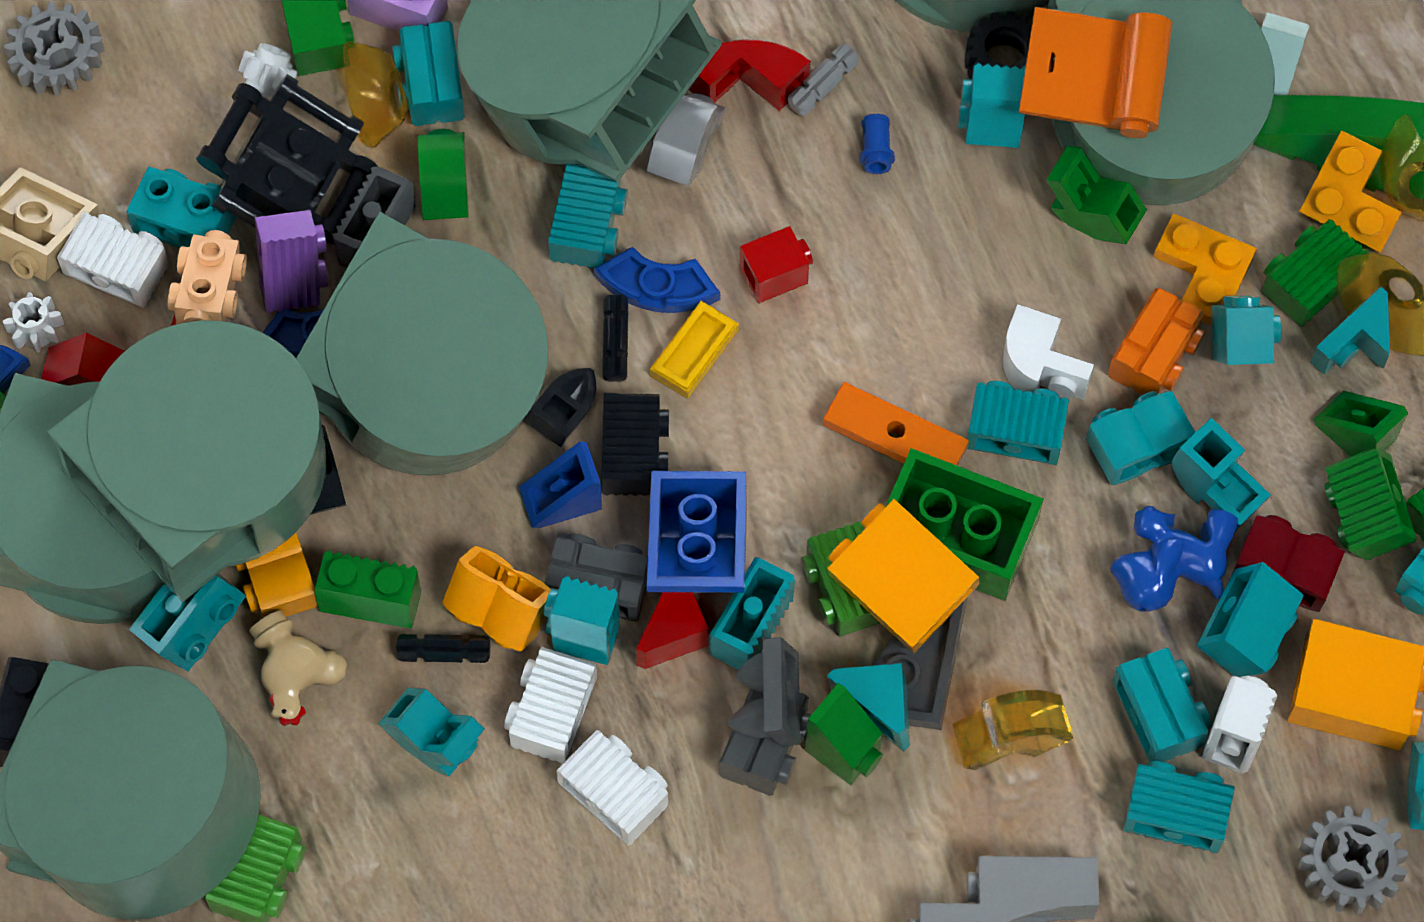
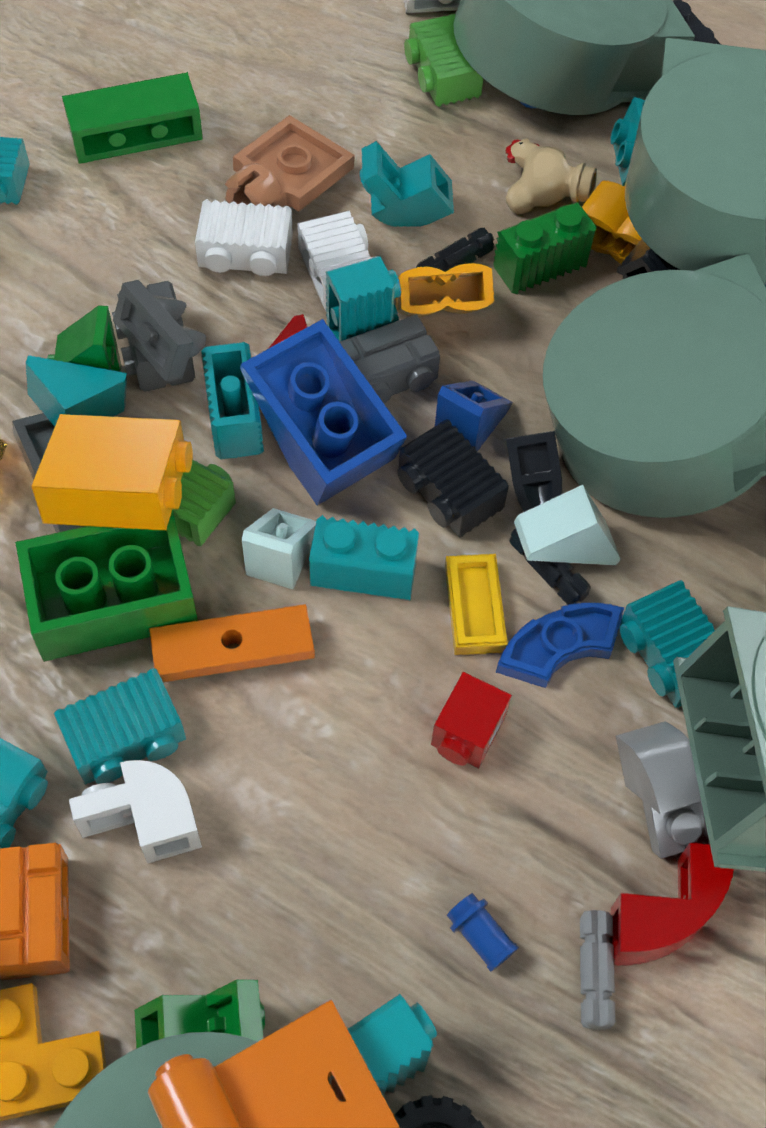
camera: 140 degrees right, 5 degrees down
(515, 841) = (287, 167): none -> nougat plate
(591, 335) = (567, 531): none -> light aqua slope
(753, 423) = (363, 558): none -> teal brick
(802, 482) = (277, 547): none -> light aqua slope

